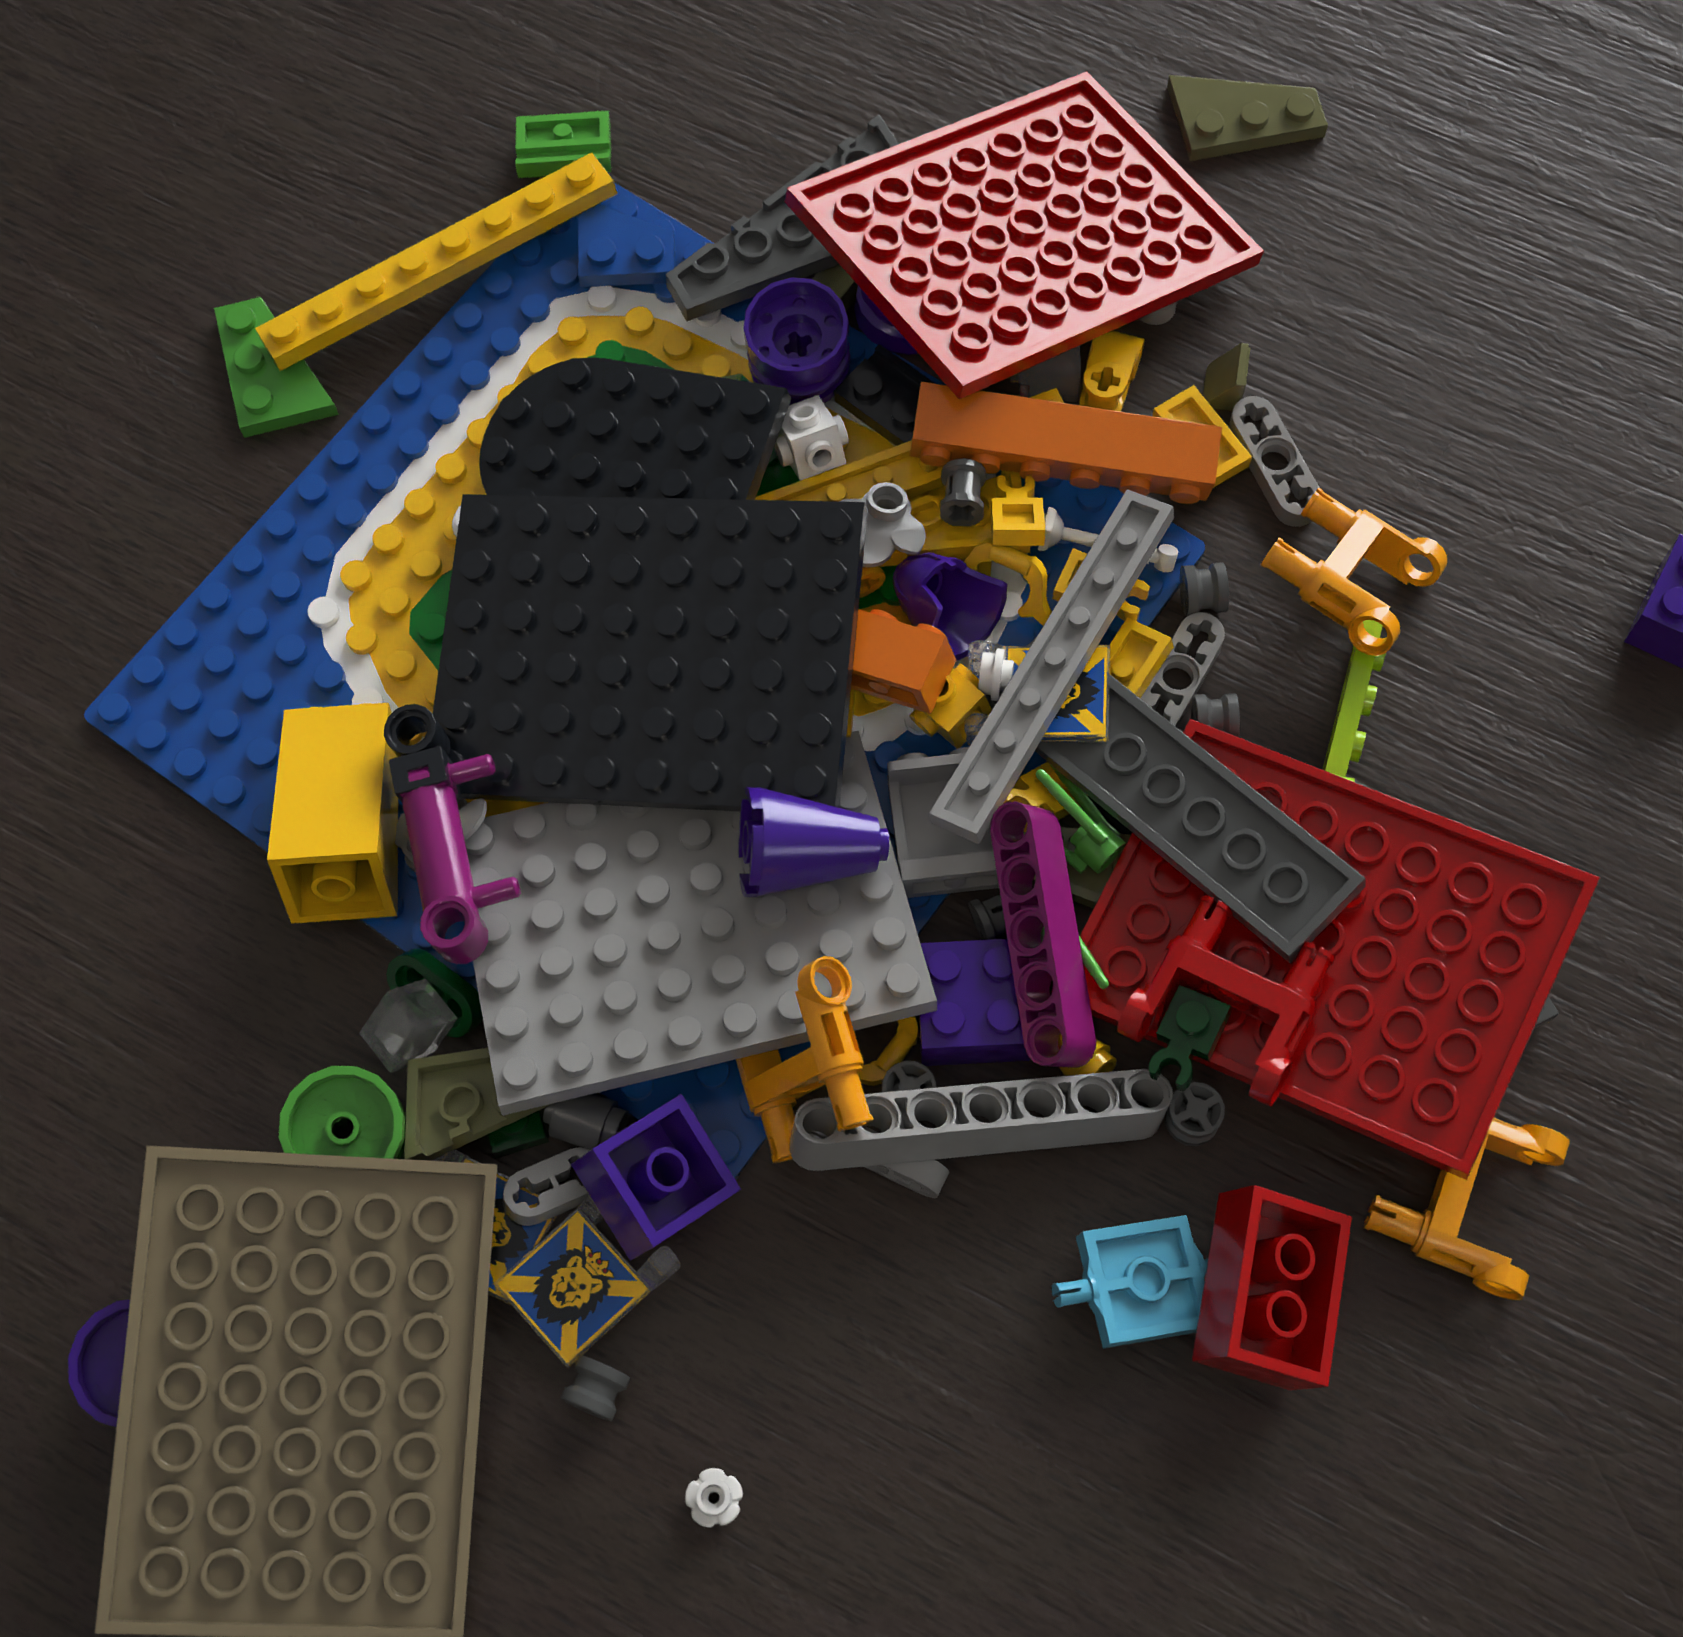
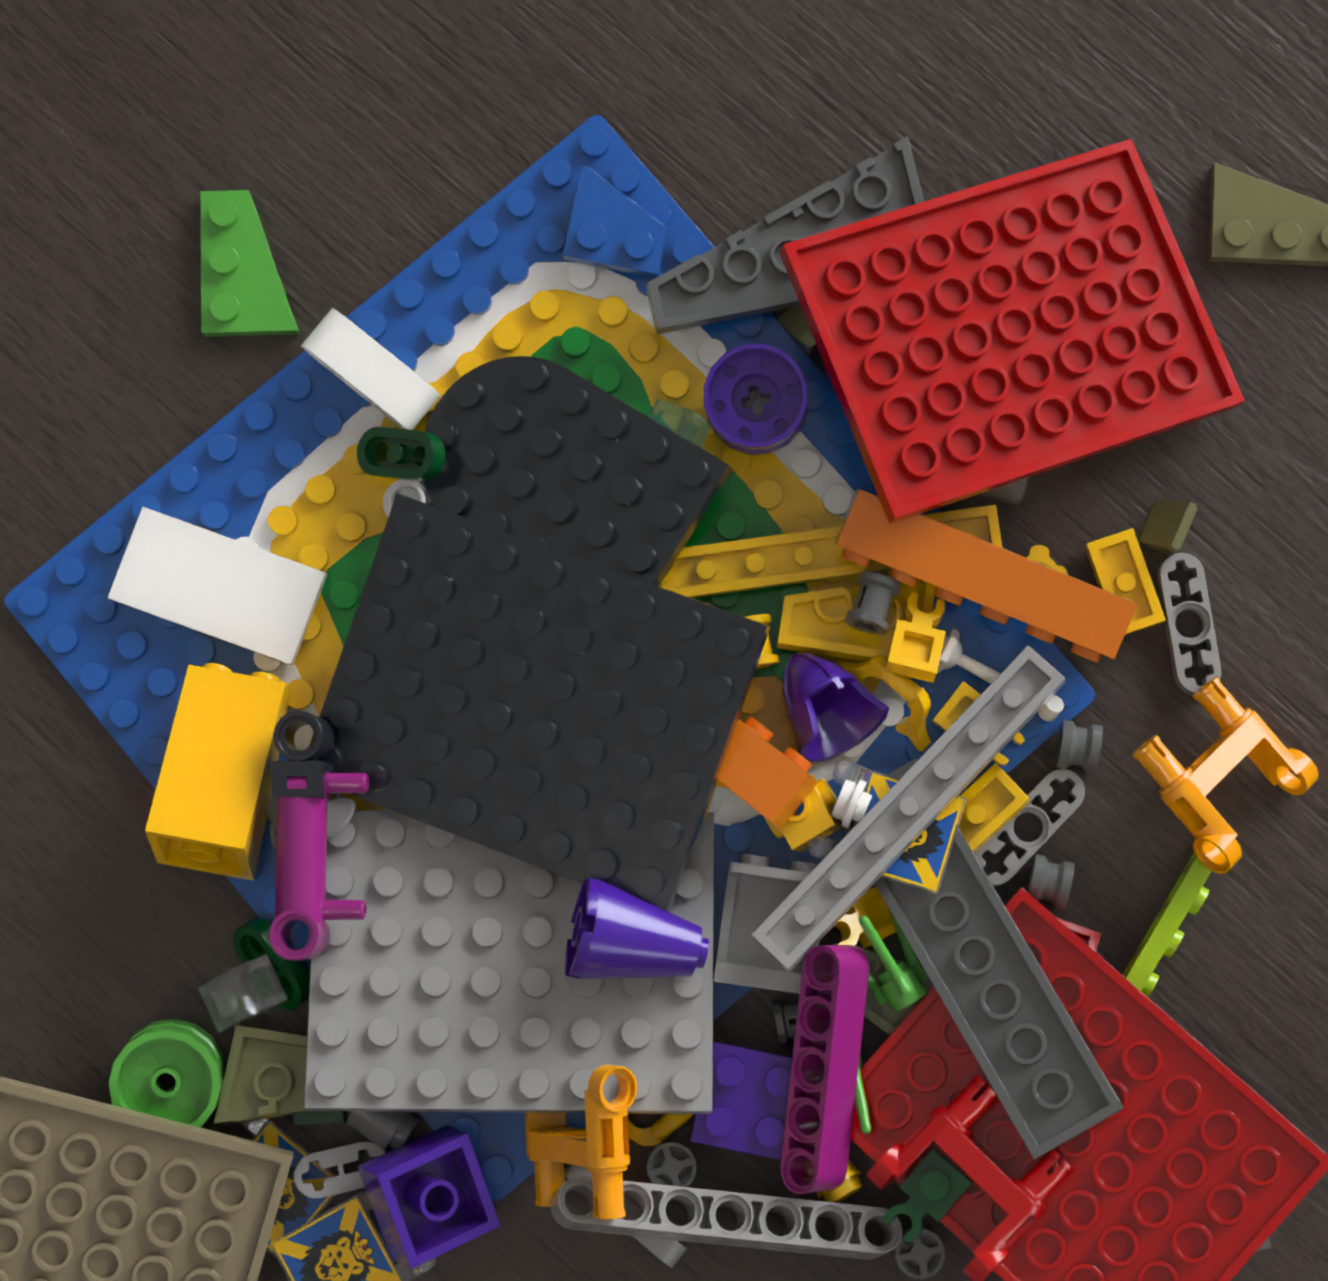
camera: 20 degrees right, 15 degrees up
(301, 644) = (217, 586): none -> white tile
(414, 414) = (370, 370): none -> white beam
(436, 261) = (428, 202): yellow plate -> none
(463, 469) = (401, 454): none -> dark green plate
(557, 140) = (582, 89): bright green plate -> none
(811, 439) = (745, 503): white brick -> none
(883, 395) = (830, 464): black plate -> none
(889, 524) = (788, 625): light grey plate -> none
(1110, 370) = (1060, 491): yellow piece -> none

